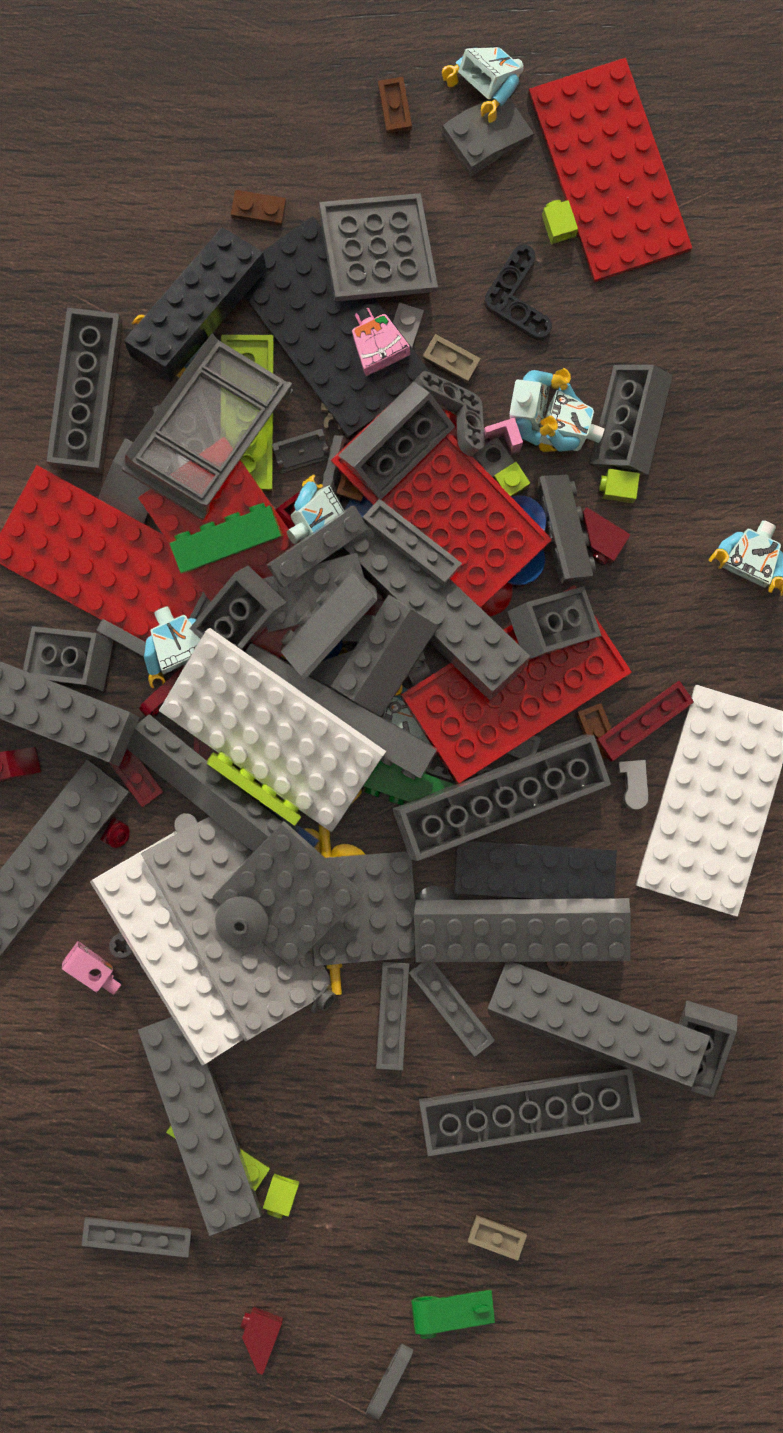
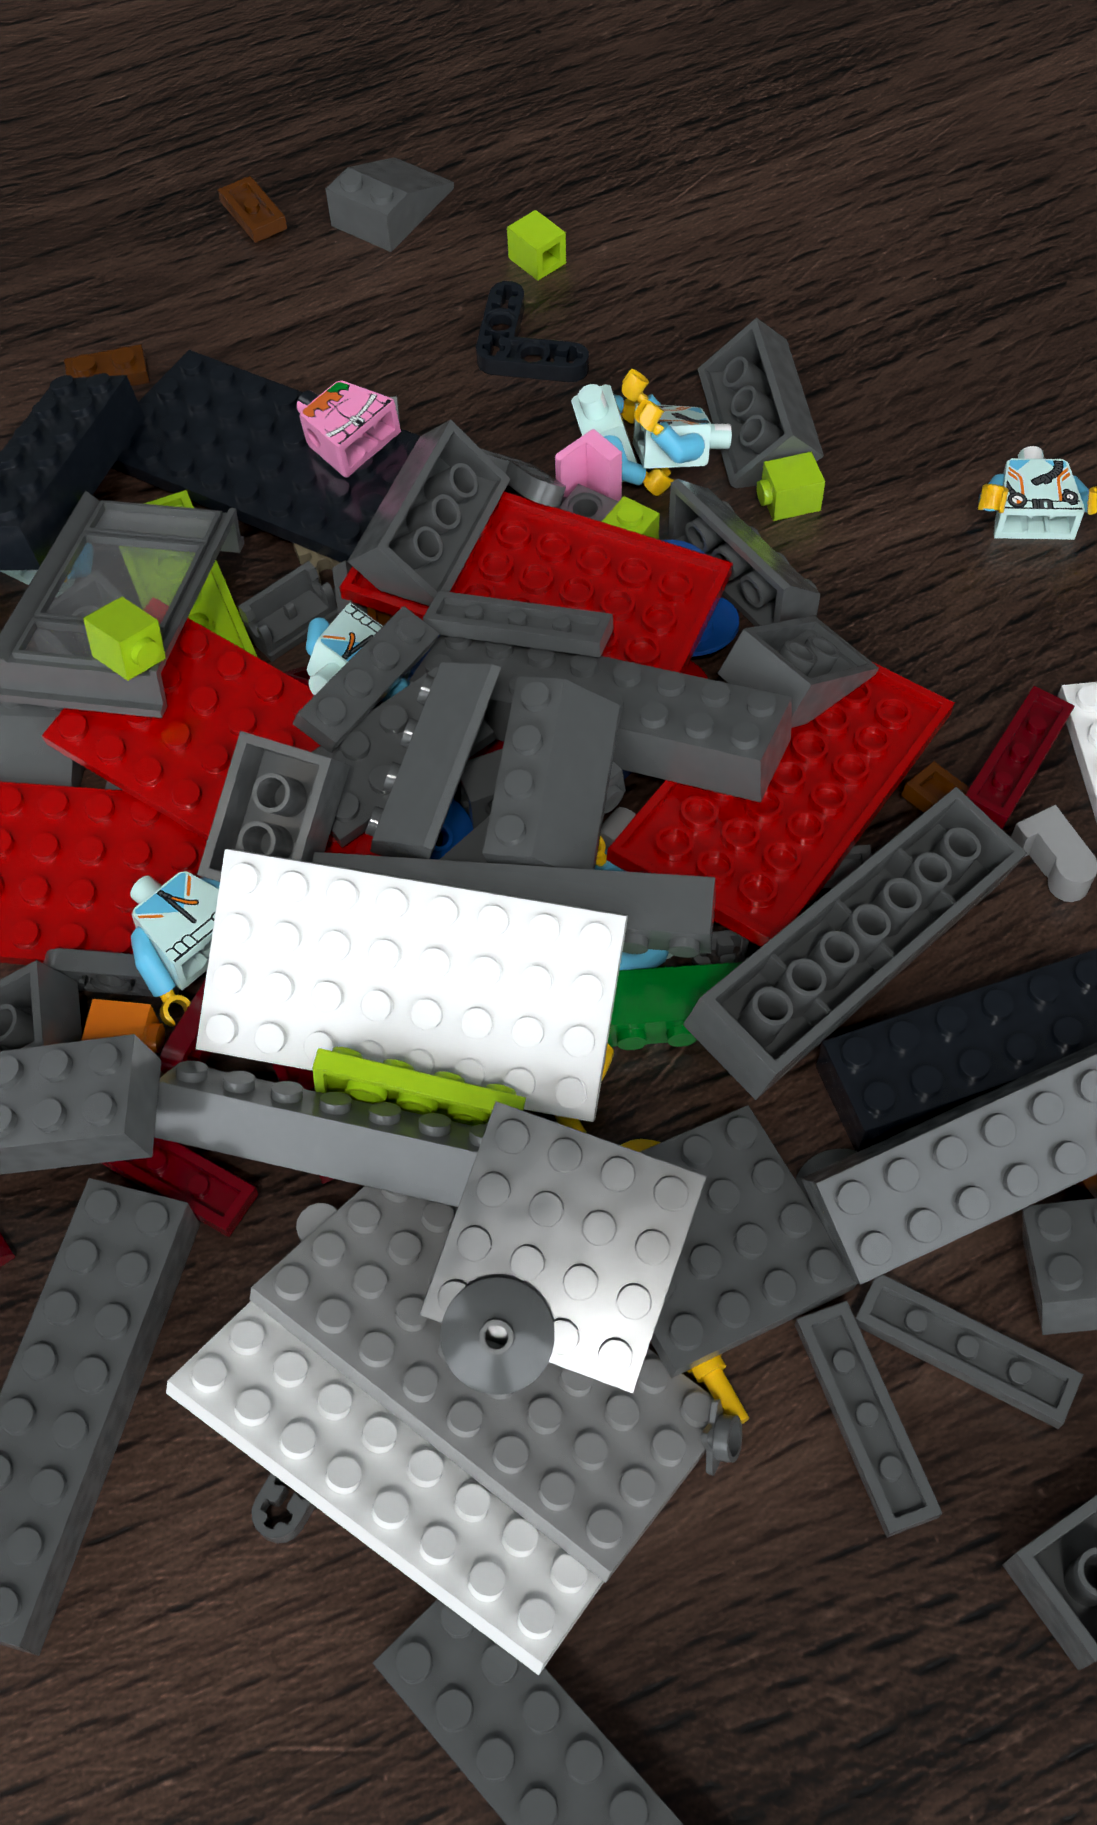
camera: 15 degrees left, 25 degrees down
(82, 960) = (206, 1567): bright pink torso -> none
(115, 833) = (193, 1303): dark red plate -> none
(127, 681) = (121, 1018): none -> orange brick
(196, 483) = (124, 638): none -> lime brick
(226, 539) = (205, 727): green brick -> none
(377, 247) = (296, 341): dark grey plate -> none
(451, 358) = (484, 429): dark tan plate -> none
(490, 73) = (357, 125): torso -> none
(604, 537) = (808, 546): dark red slope -> none
(610, 169) = (614, 204): red plate -> none

